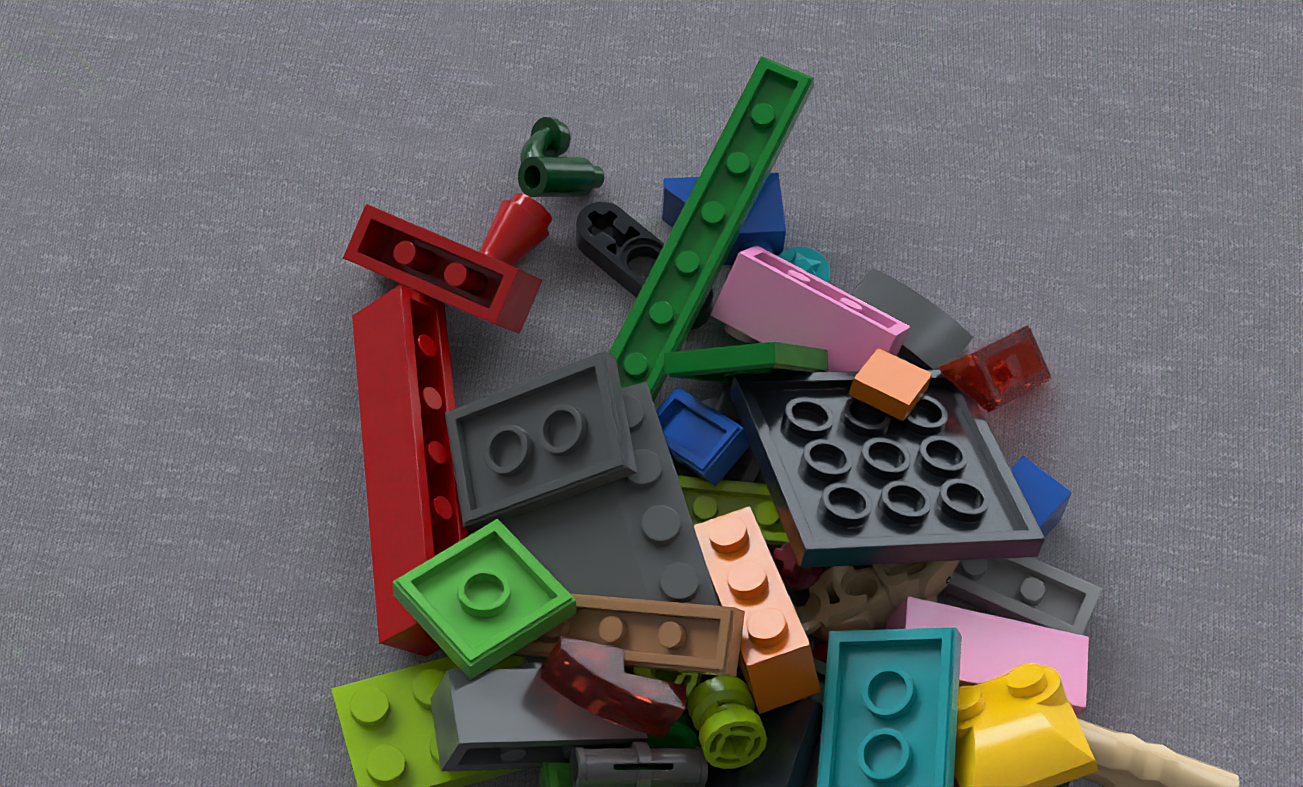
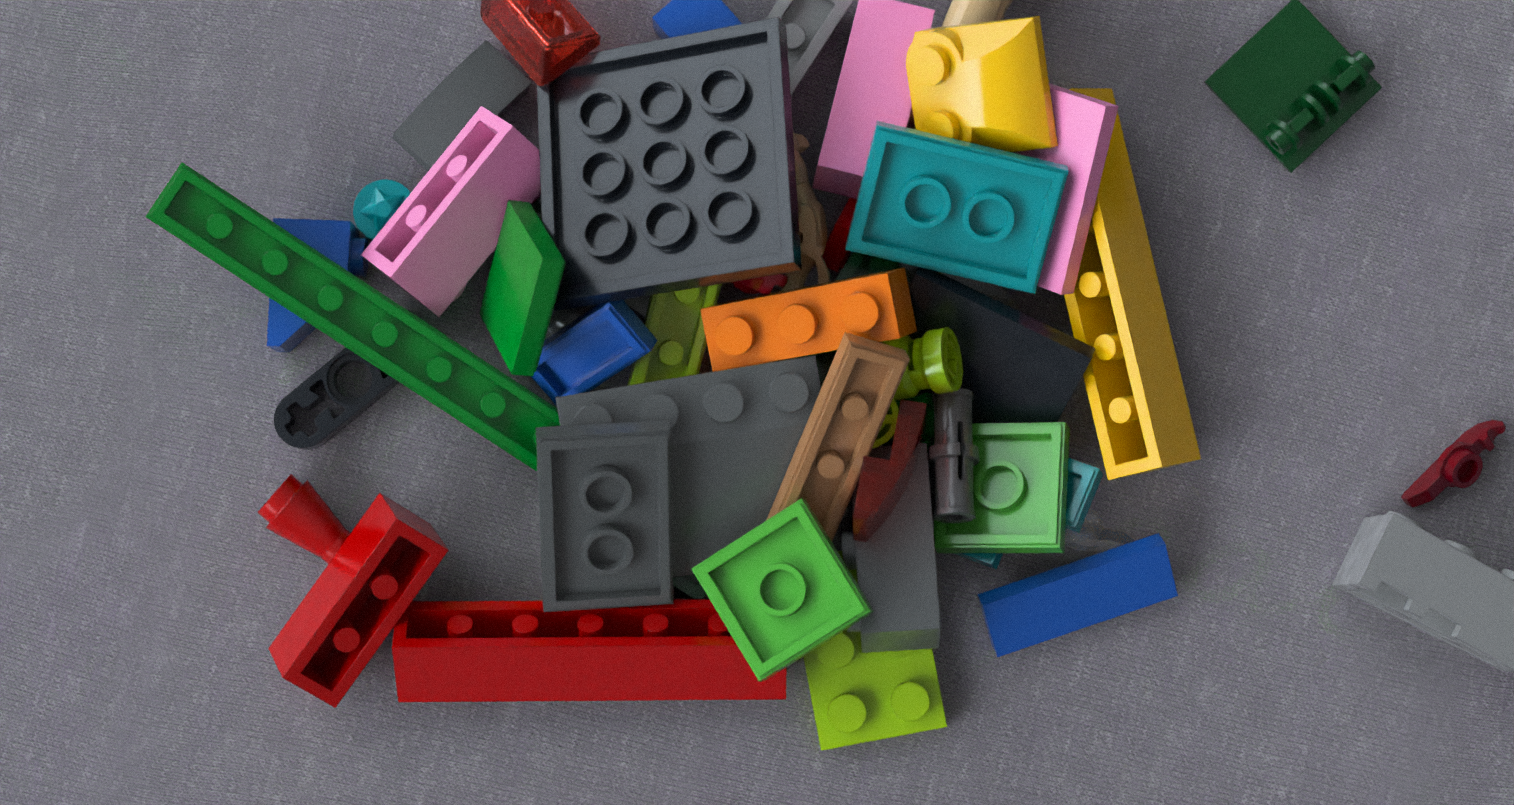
camera: 85 degrees left, 25 degrees up
(553, 176) = (242, 460): dark green plant -> none
(890, 384) = (569, 141): tile -> none

